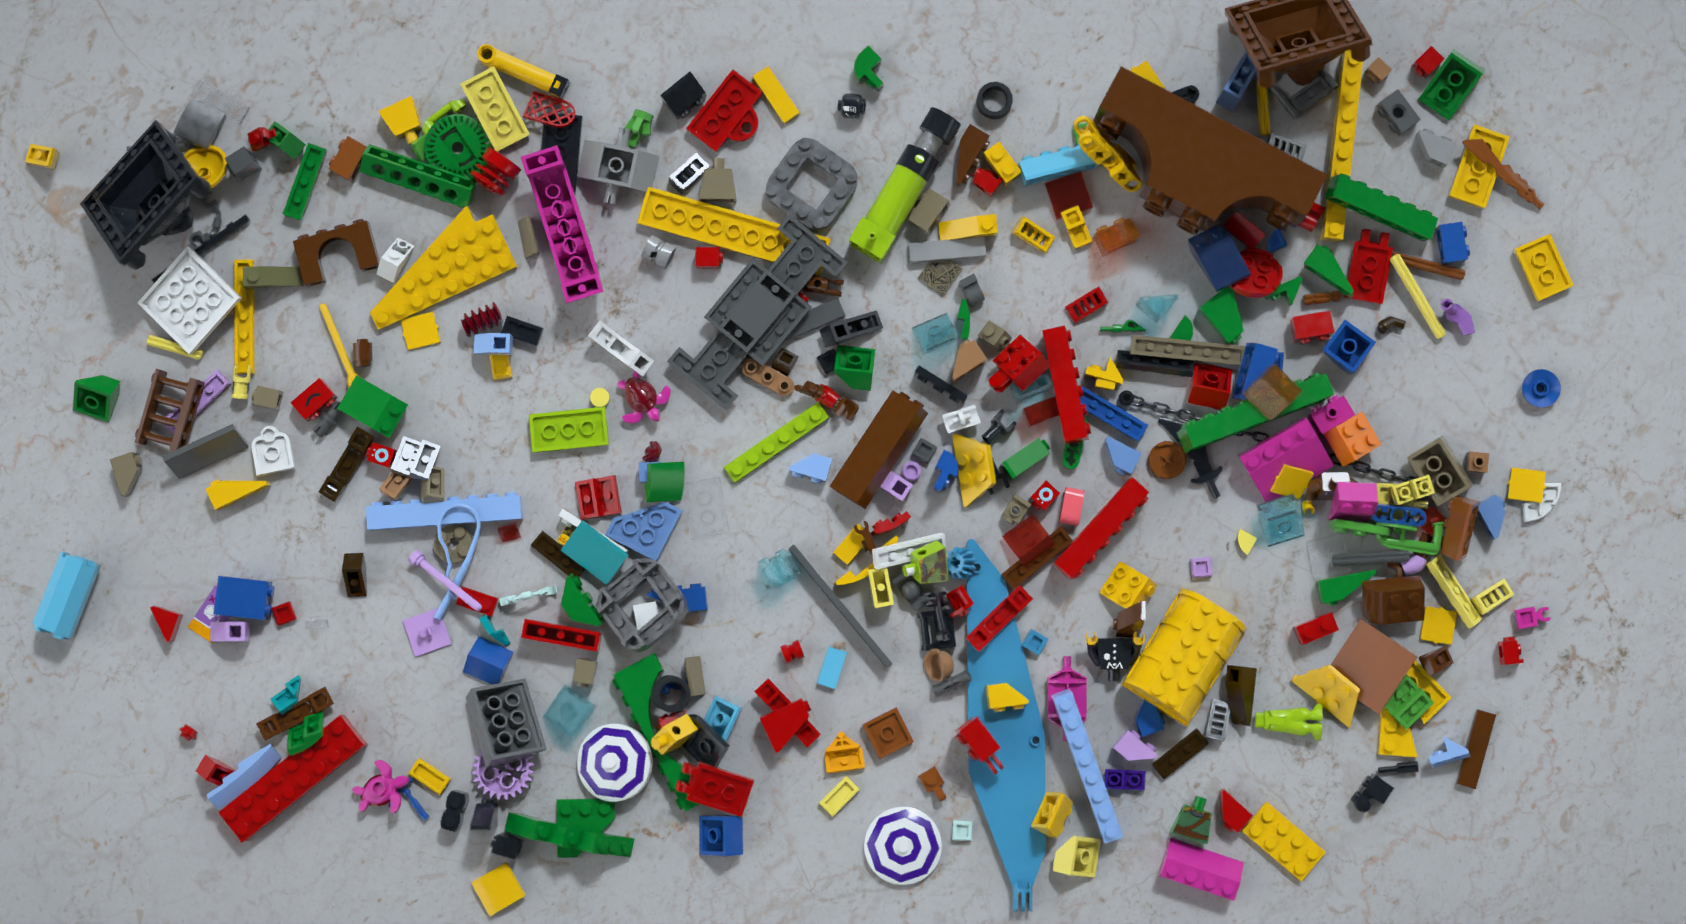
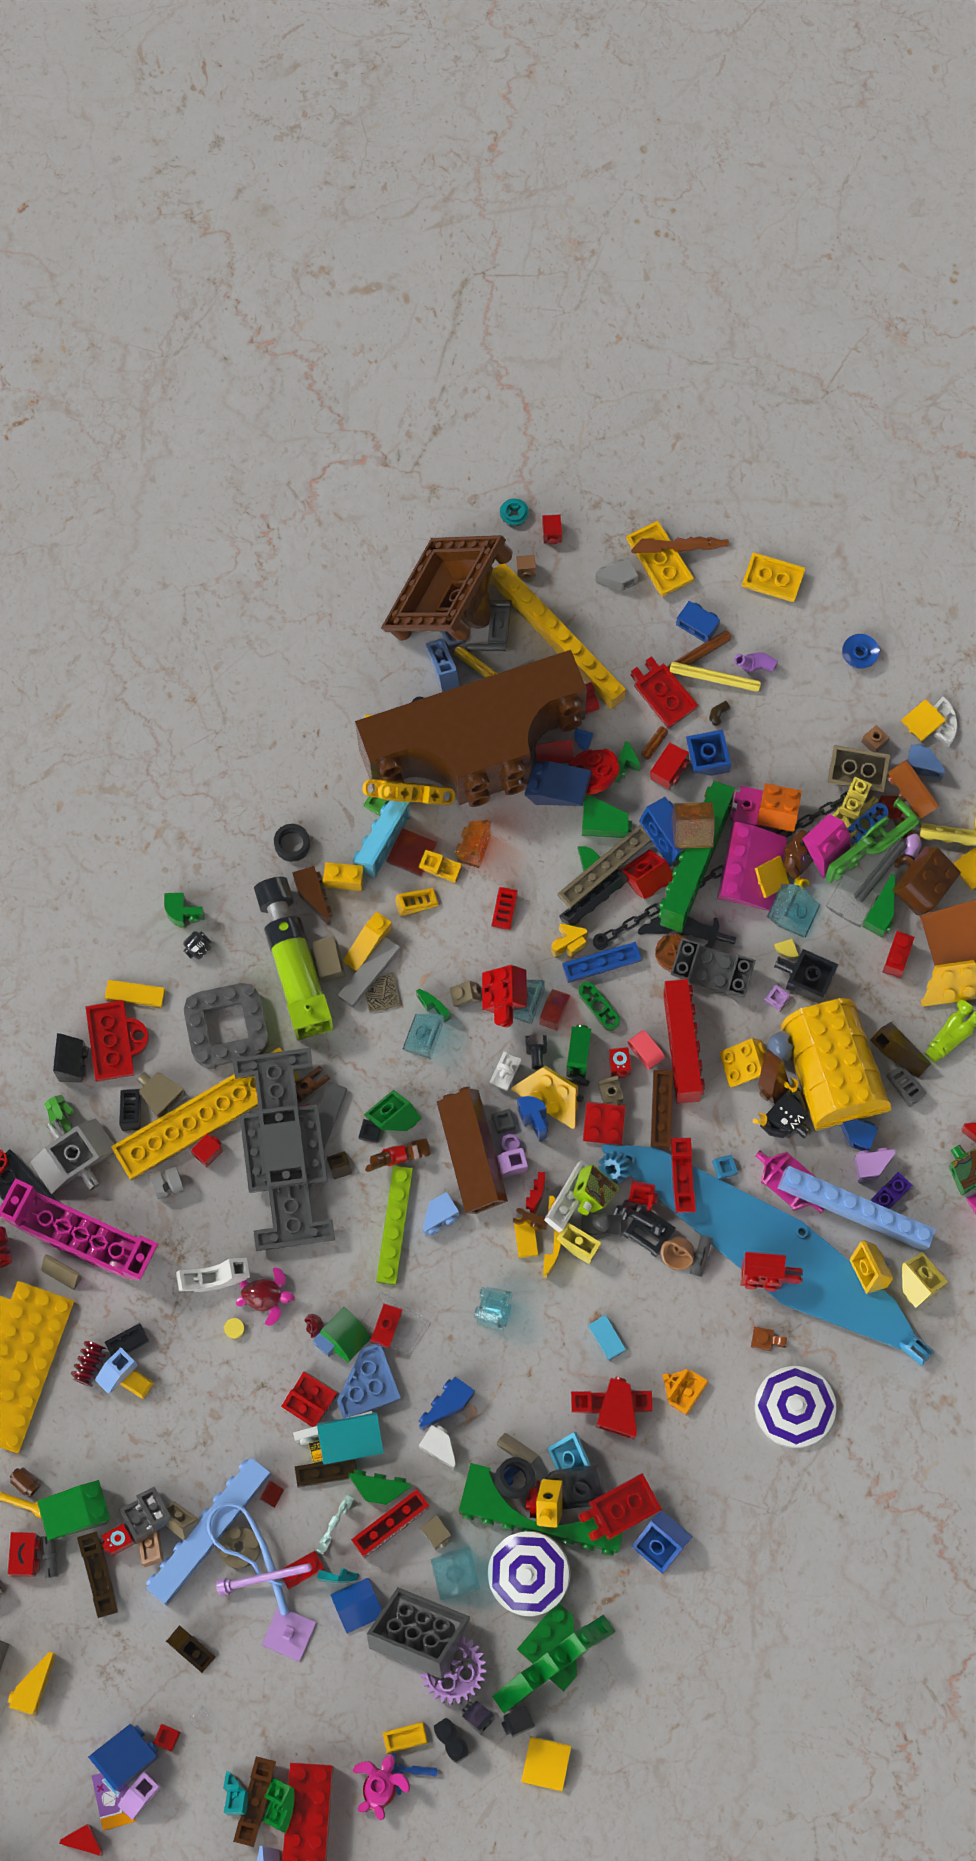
camera: 50 degrees left, 15 degrees down
(272, 452) = (32, 1627): white plate -> none
(420, 330) = (51, 1421): yellow piece -> none
(568, 429) = (236, 1374): lime plate -> none
(626, 584) = (397, 1437): flat silver plate -> none
(697, 504) = (386, 1325): none -> red plate
(774, 383) = (331, 1193): medium nougat plate -> none
(792, 651) = (567, 1356): red wheel -> none
(839, 796) = (712, 1421): light yellow tile -> none
(840, 606) = (567, 1287): dark grey tile -> none
(850, 328) = (360, 1093): black slope -> none
(888, 733) = (696, 1339): dark orange plate -> none
(940, 385) = (465, 1064): black plate -> none
(962, 830) = (823, 1350): light aqua tile -> none
(967, 360) = (465, 1024): medium nougat slope -> none
(971, 290) = (415, 979): dark grey leg -> none
(986, 181) = (345, 899): red brick -> none
(987, 525) = (604, 1123): none -> red plate
(1004, 695) = (746, 1223): yellow slope -> none
(1028, 540) = (643, 1102): clear red tile -> none
(1065, 384) = (555, 975): red brick -> none
(1115, 328) = (547, 896): green hand -> none
(1122, 456) = (641, 980): medium blue slope -> none
(1156, 306) = (551, 859): clear light blue slope -> none
(1161, 602) = (780, 1046): none -> sand blue hair
(1178, 501) = (713, 968): none -> dark grey slope
(1180, 753) = (907, 1135): dark brown tile -> none
(1243, 568) = (800, 973): none -> black brick
(1325, 266) = (637, 719): green slope -> none
(1380, 207) = (627, 644): green brick -> none
(1398, 102) = (561, 571): dark grey brick -> none
(1423, 15) = (514, 504): none -> teal gear
(1451, 84) = (583, 527): green slope -> none

